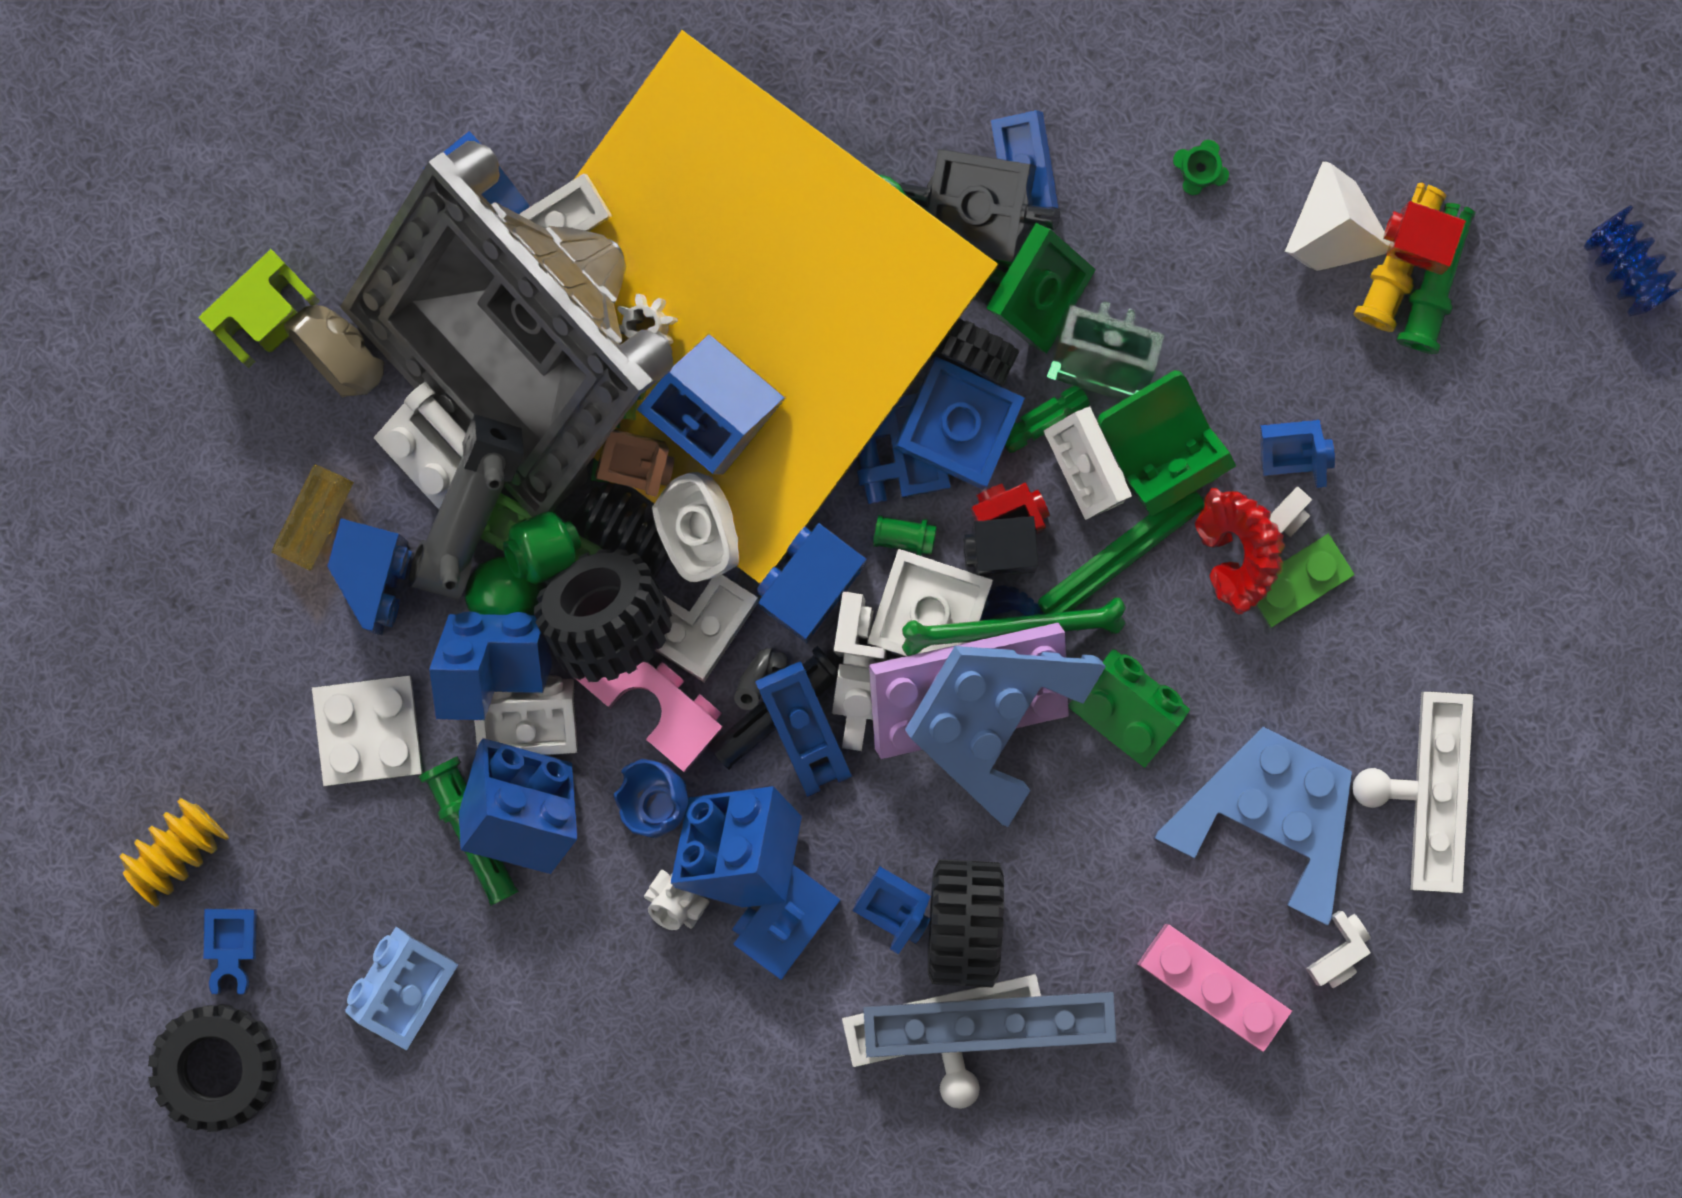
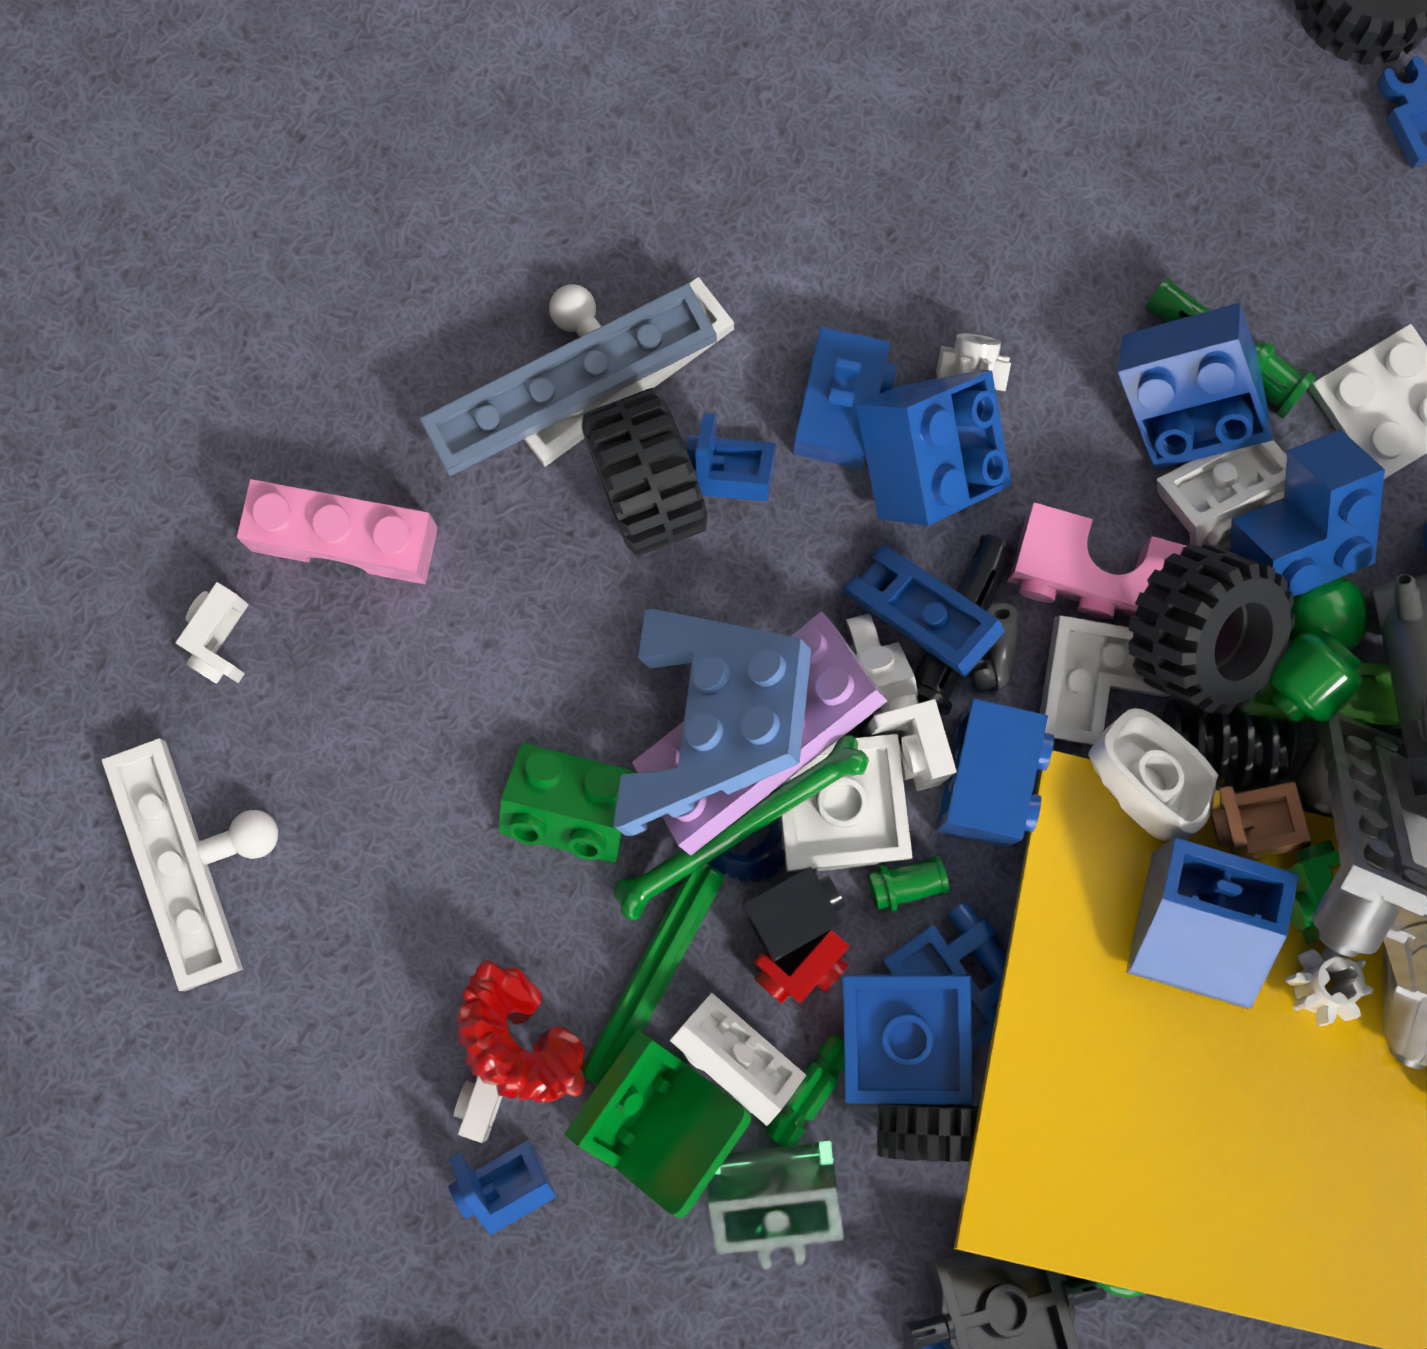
camera: 155 degrees right, 5 degrees down
(399, 988) = (1221, 149): light blue bracket -> none
(666, 809) = (1060, 443): blue hair -> none
(1039, 287) = (889, 1245): green tile -> none
(1283, 796) = (352, 780): medium blue wing -> none
(1305, 579) = (428, 1041): bright green plate -> none

